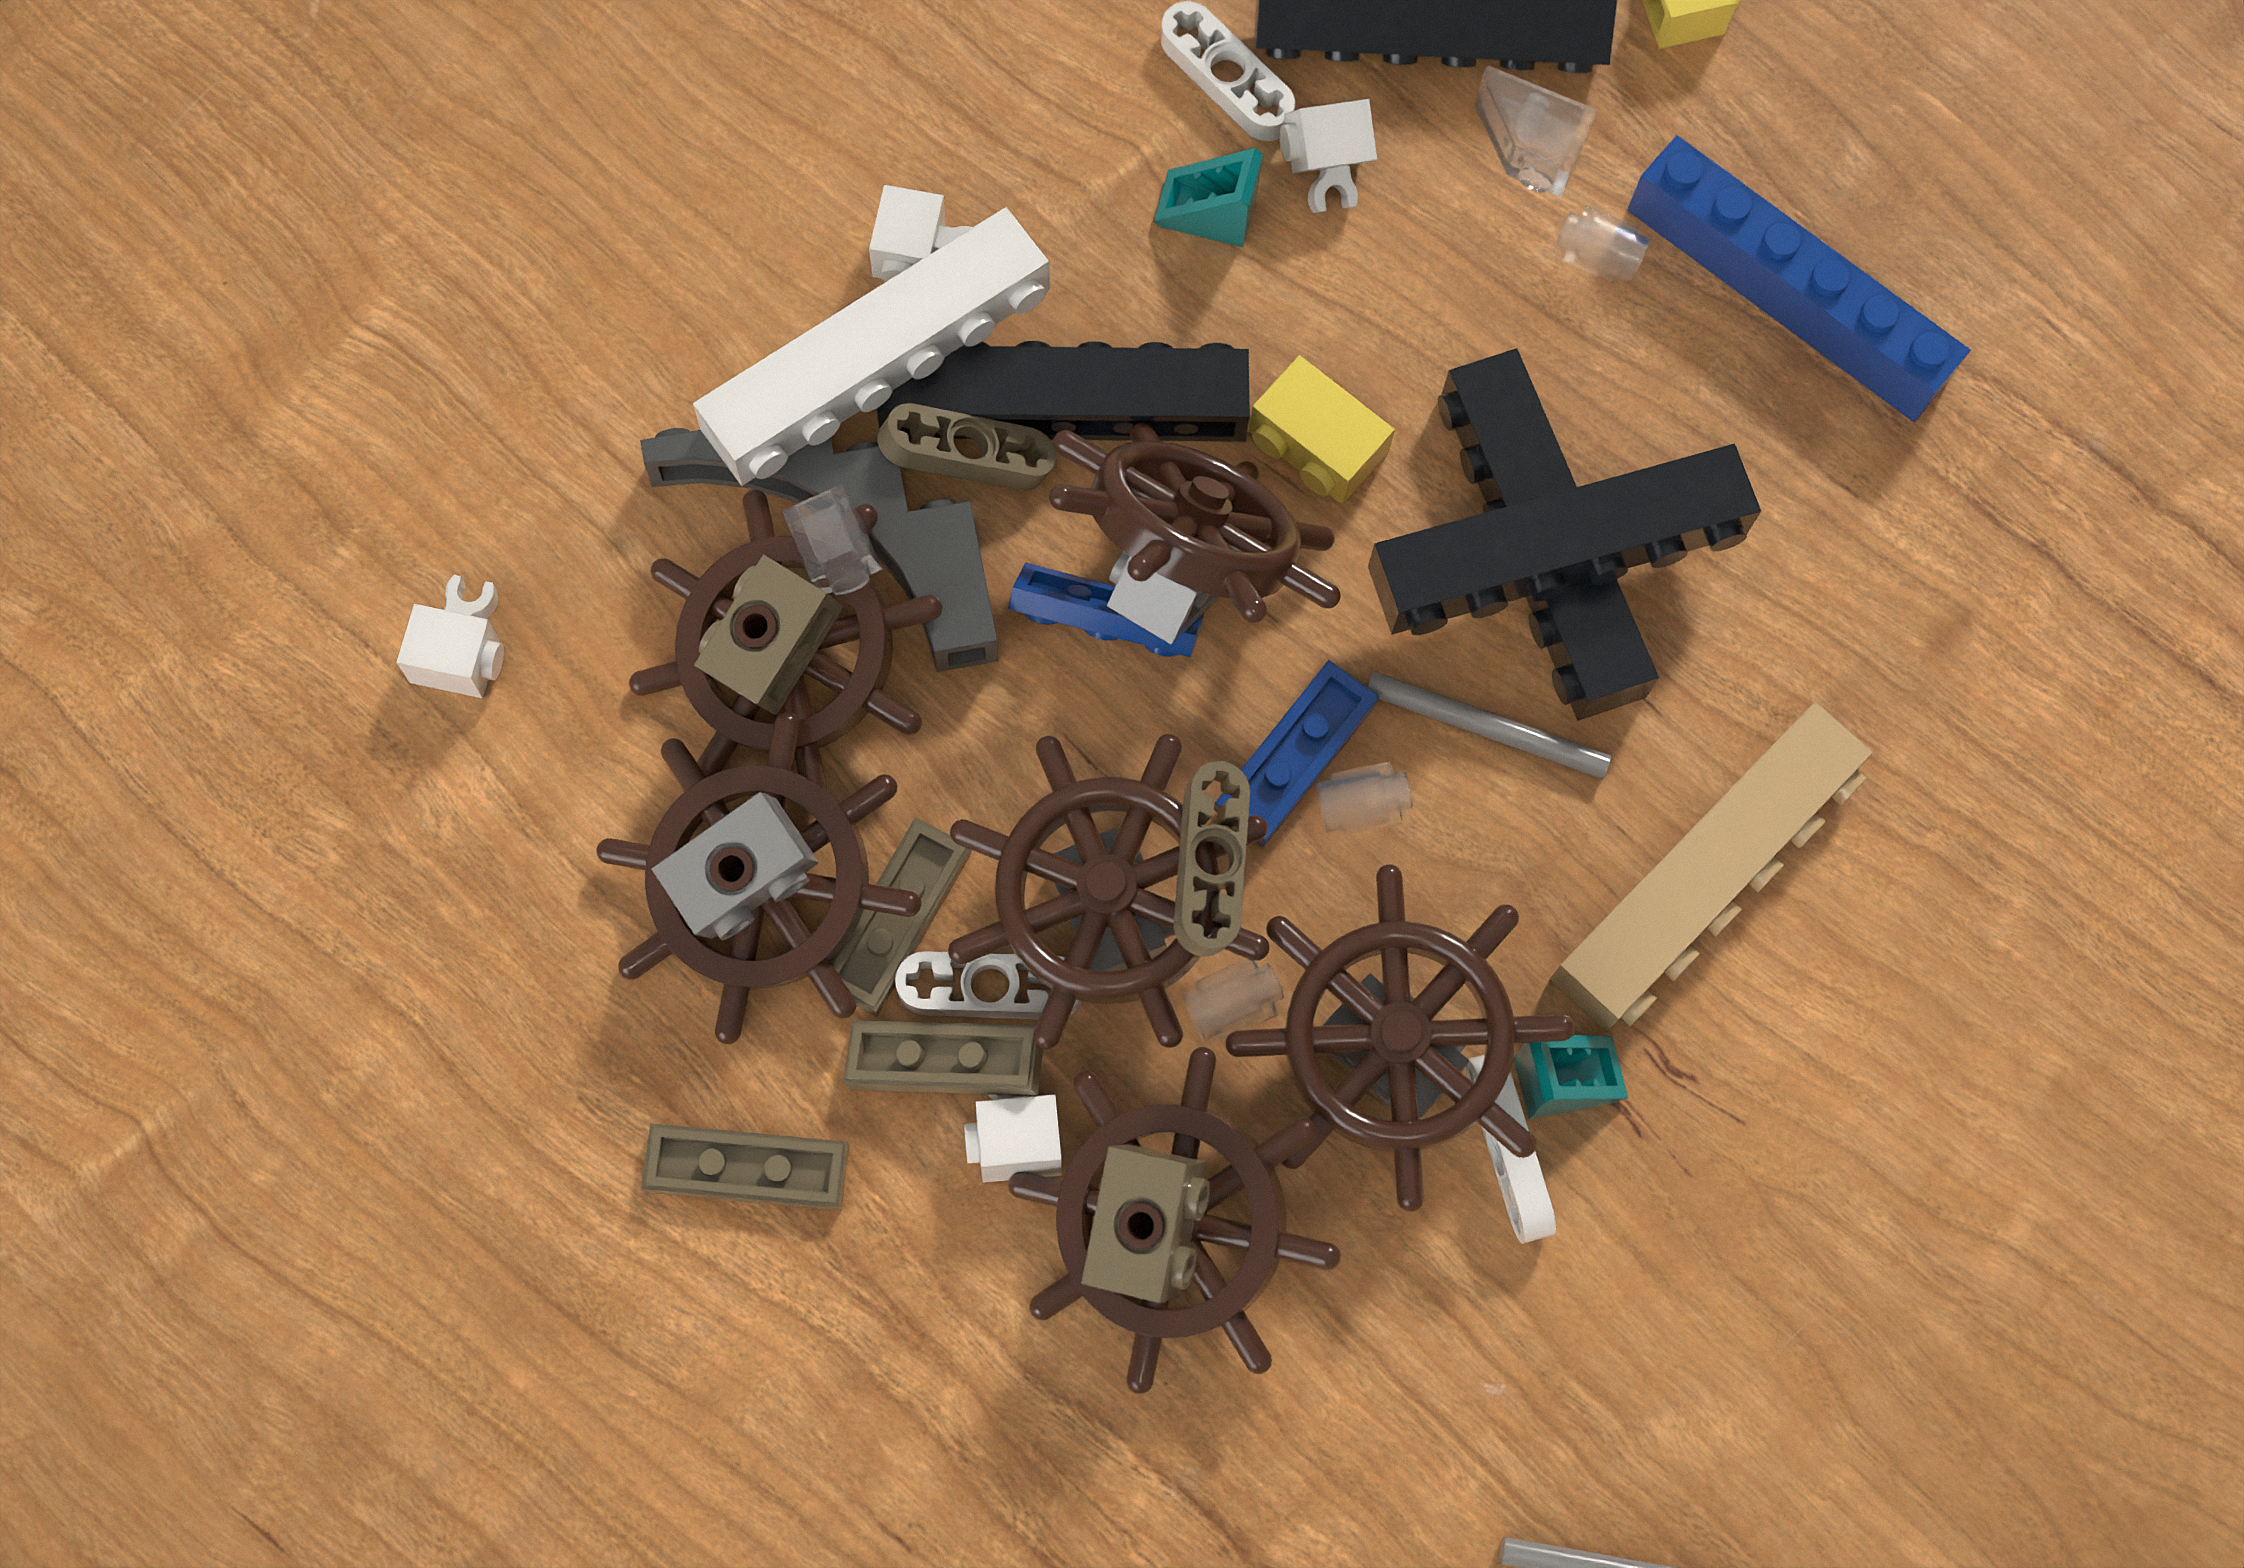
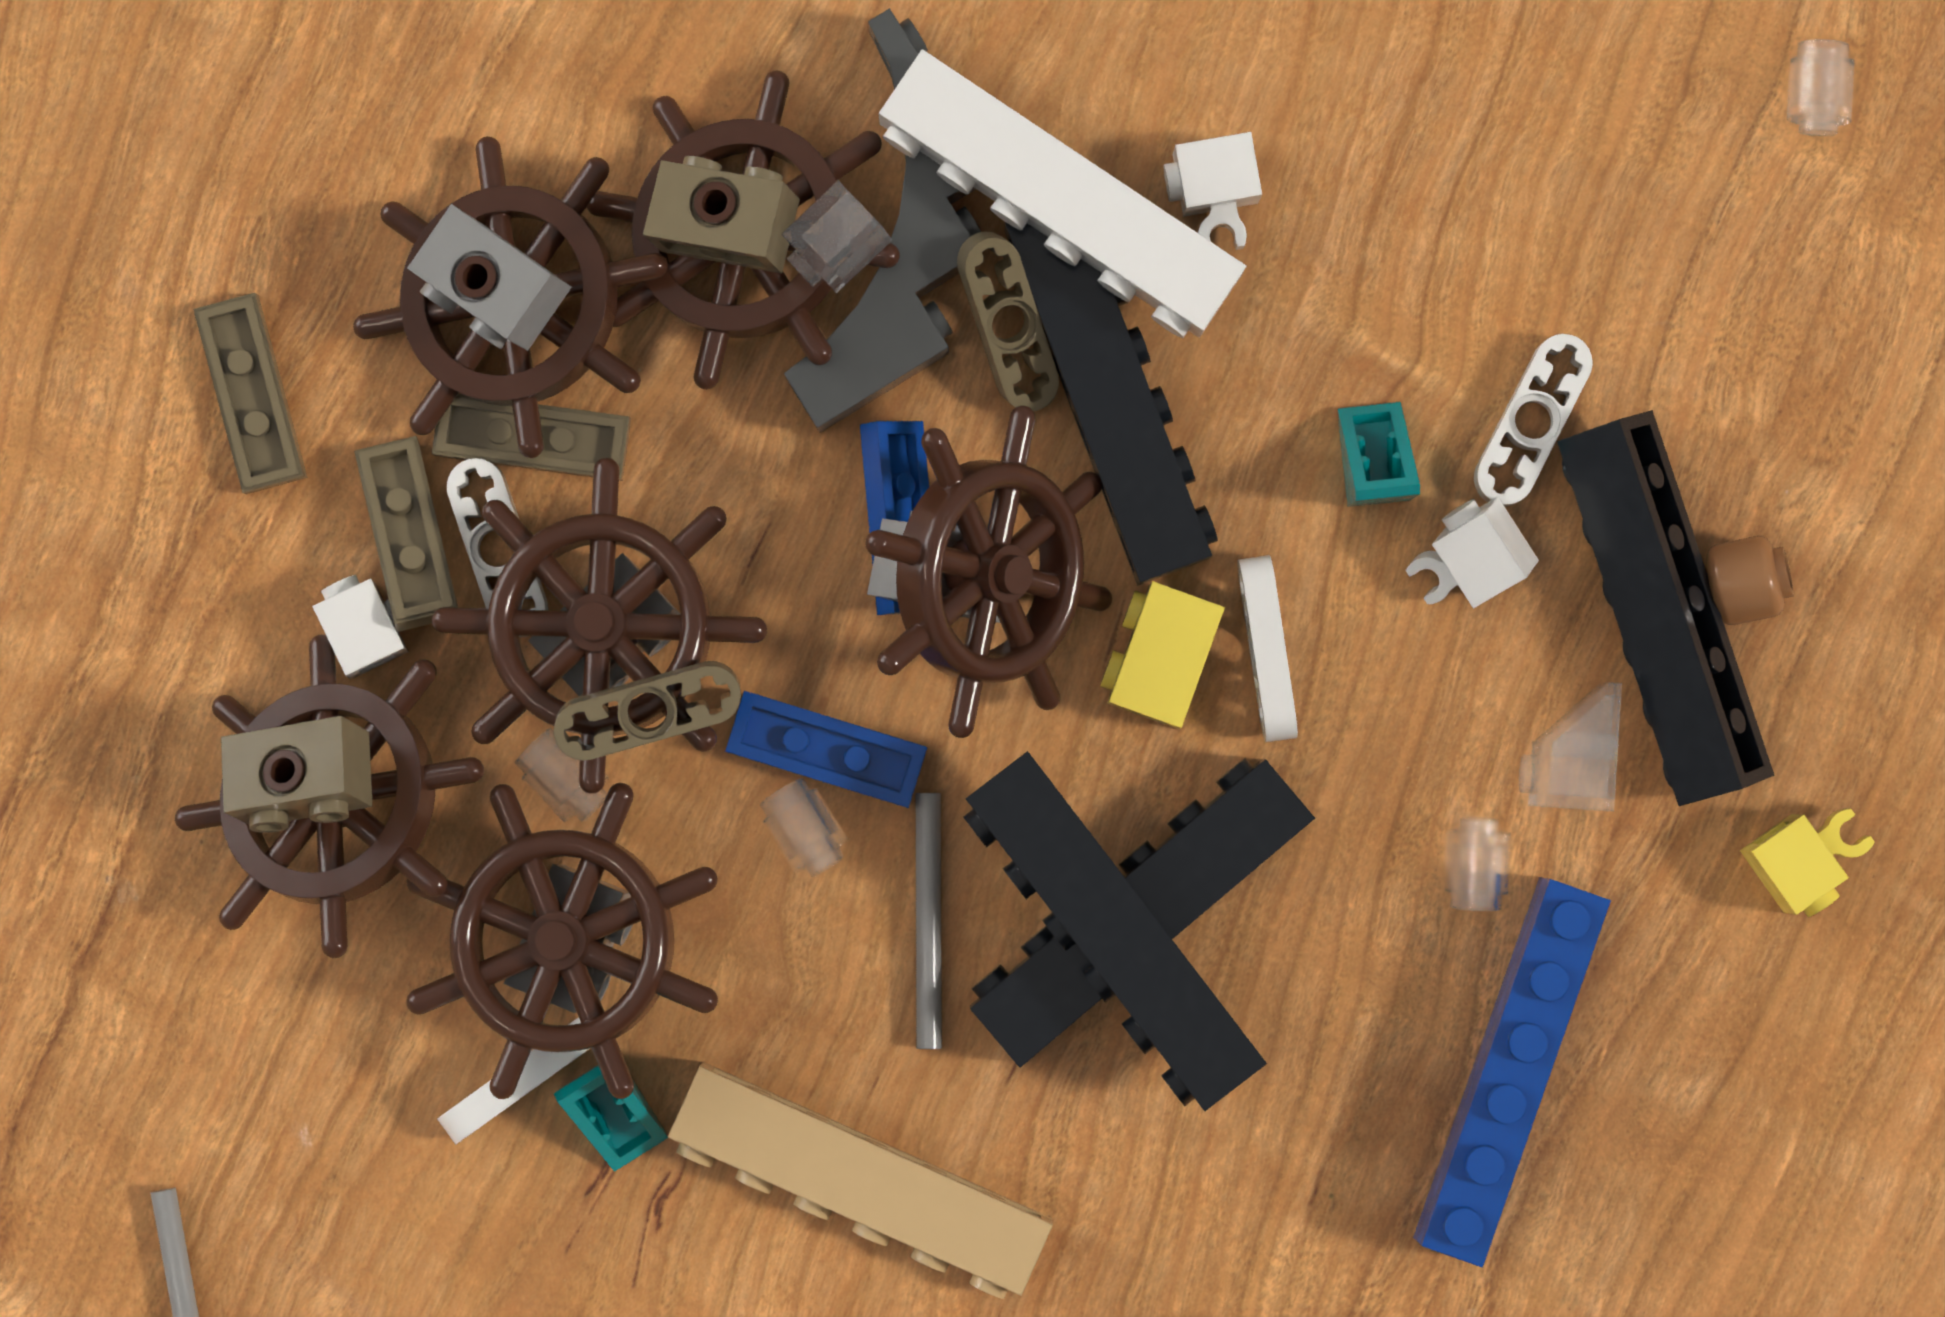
camera: 75 degrees right, 15 degrees up
(1347, 345) = (1267, 648): none -> white beam

